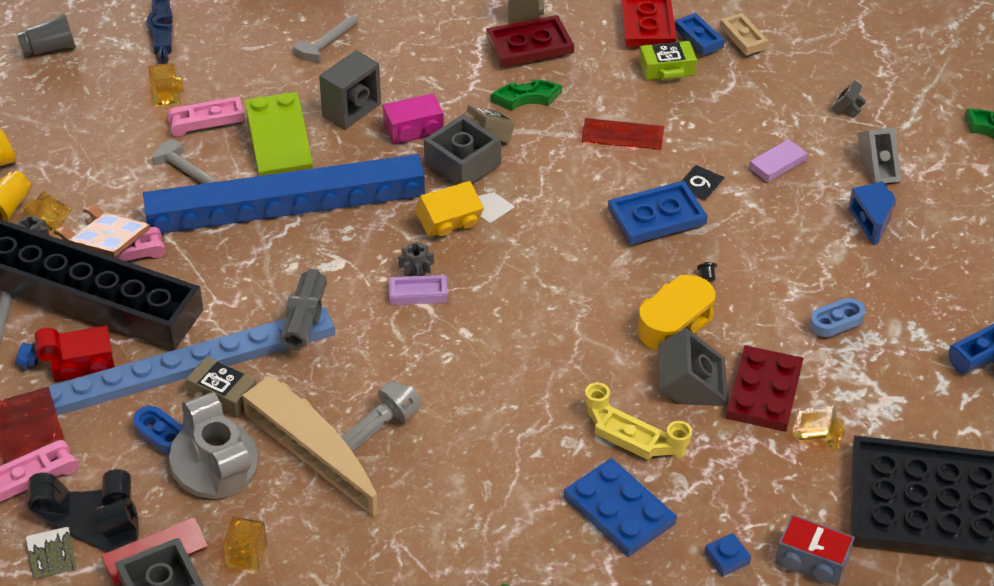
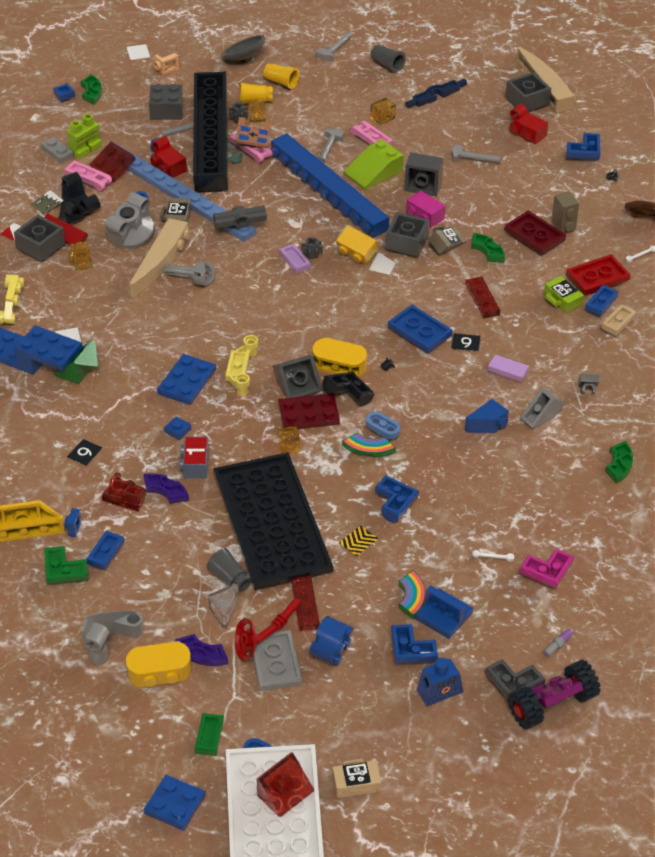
camera: 65 degrees right, 0 degrees up
(745, 321) = (349, 383): none -> black brick
(868, 349) = (362, 445): none -> tile

